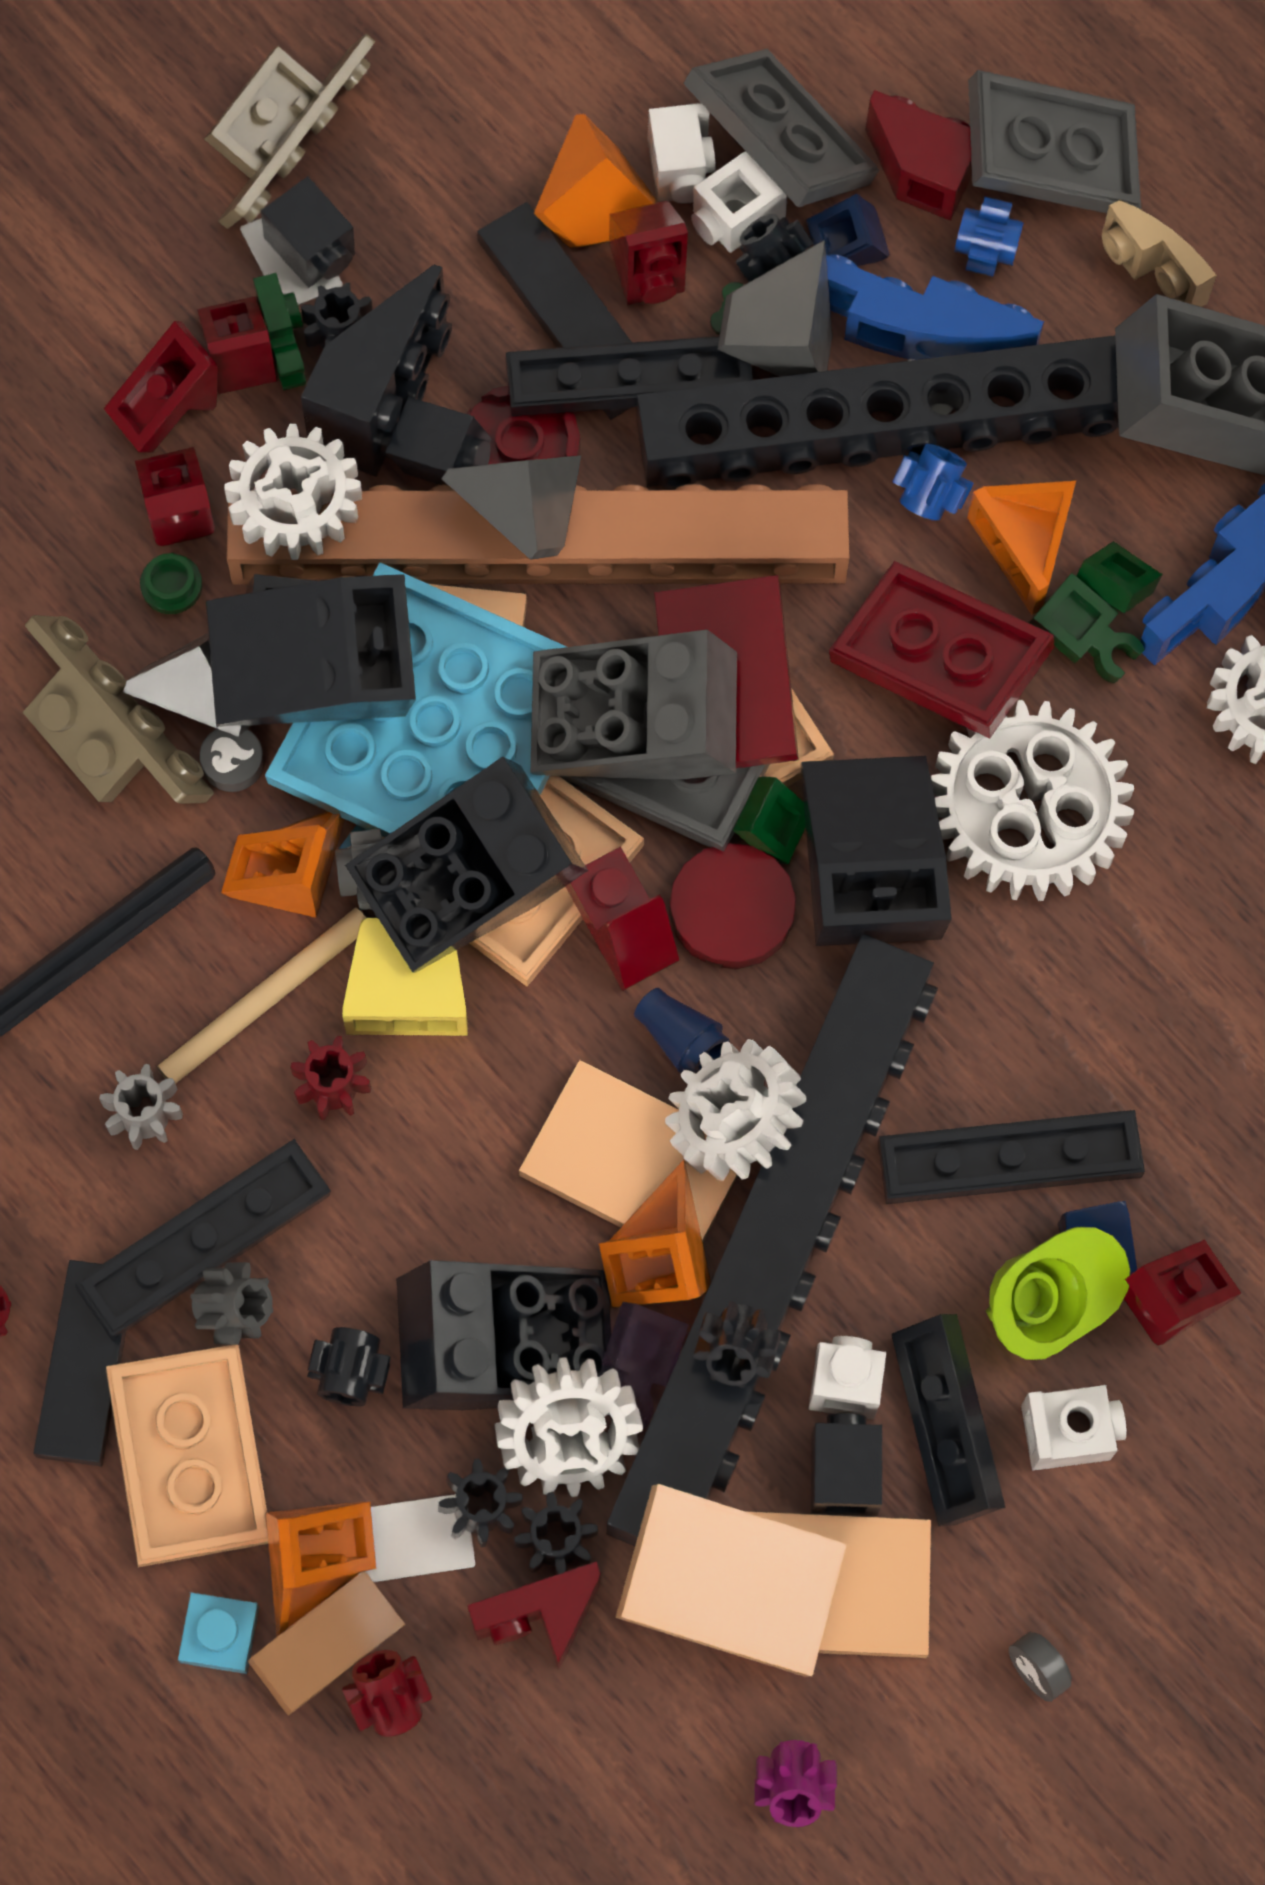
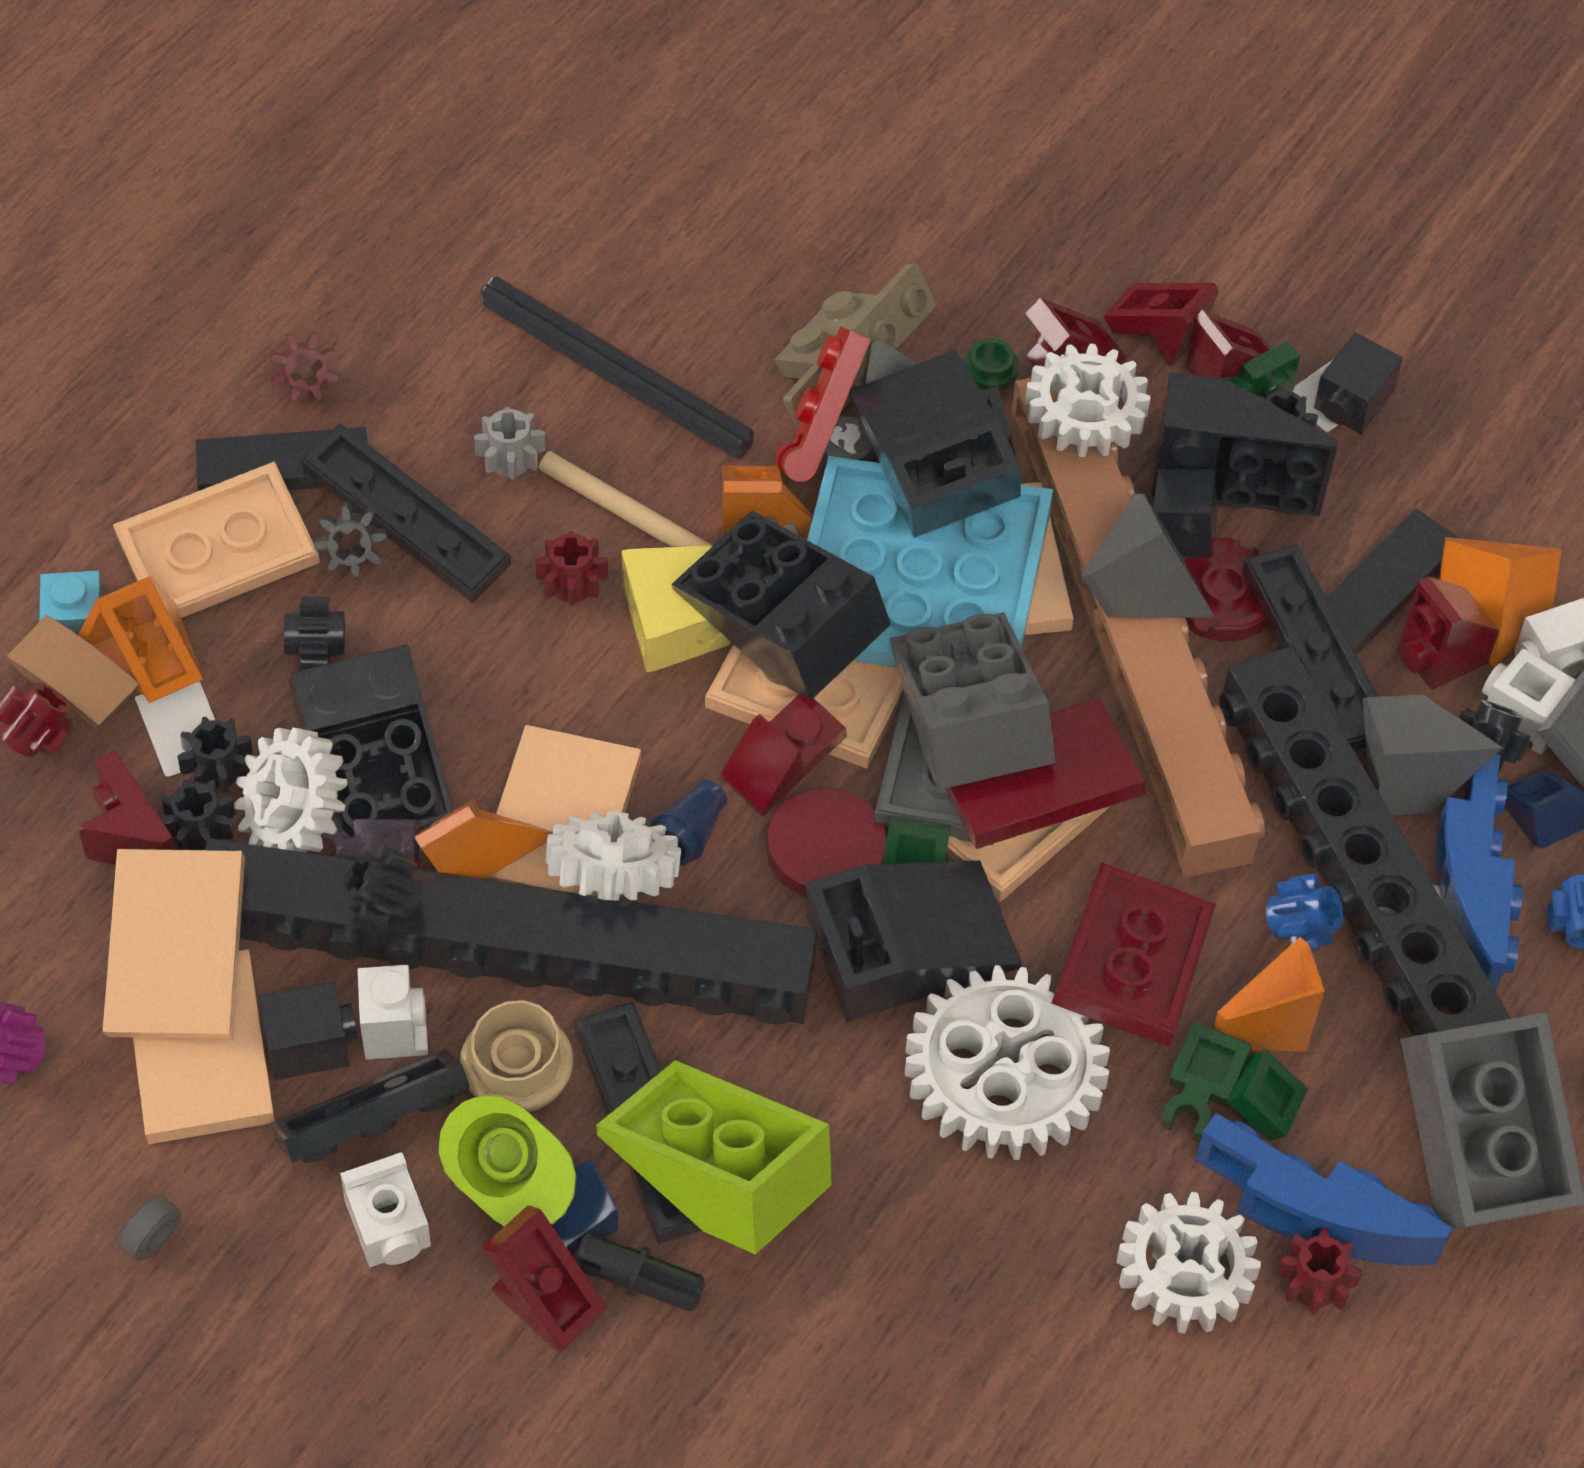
camera: 75 degrees right, 15 degrees down
(211, 758) = (822, 406): none -> plate
(273, 116) = (1463, 337): dark tan bracket -> none
(928, 1263) = (518, 1055): none -> tan piece
(1082, 1090) = (722, 1153): none -> lime slope
(1182, 1199) = (639, 1272): none -> black axle

